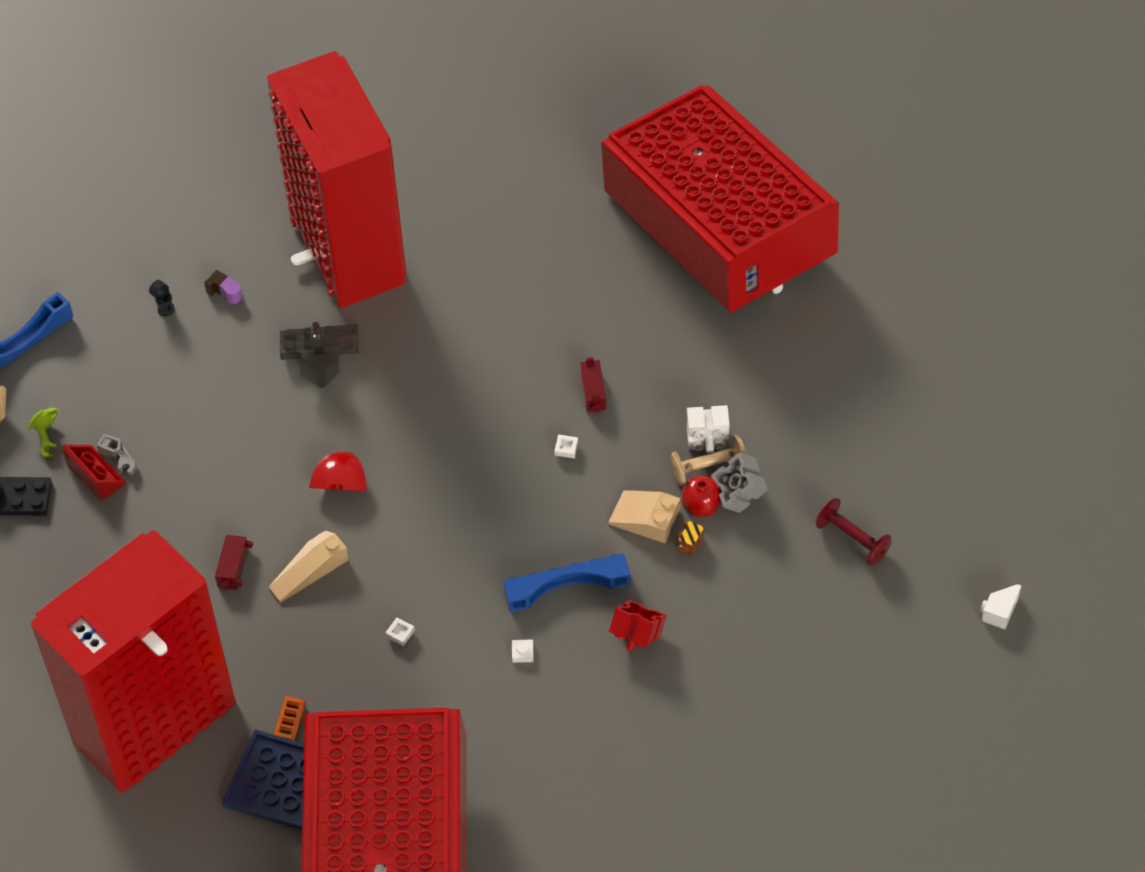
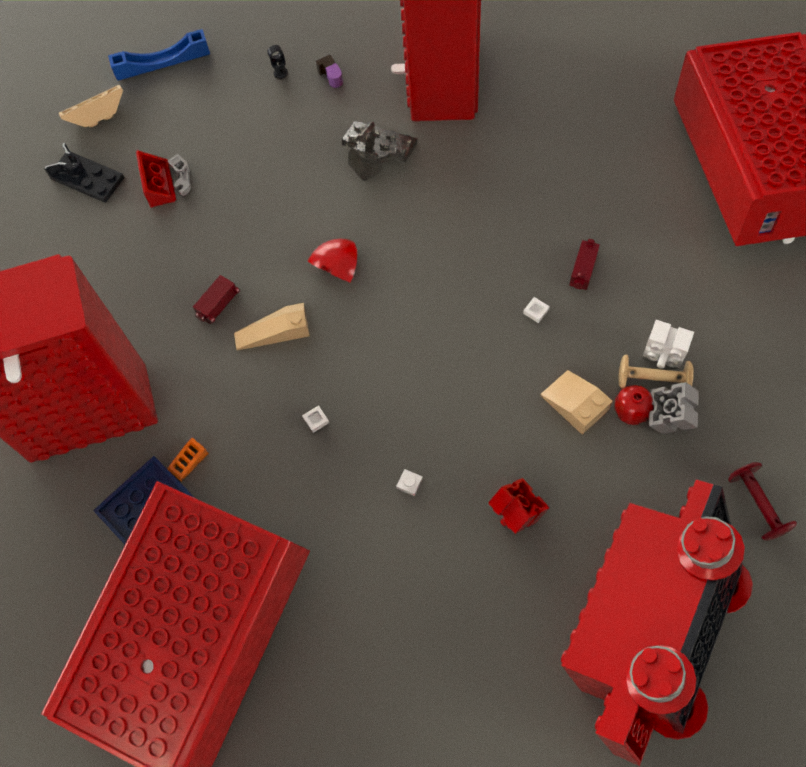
camera: 30 degrees right, 10 degrees up
(40, 422) = (137, 126): lime piece -> none
(606, 572) = (436, 428): blue arch -> none
(690, 538) = (605, 441): brick -> none
(804, 655) = (658, 620): none -> red piece

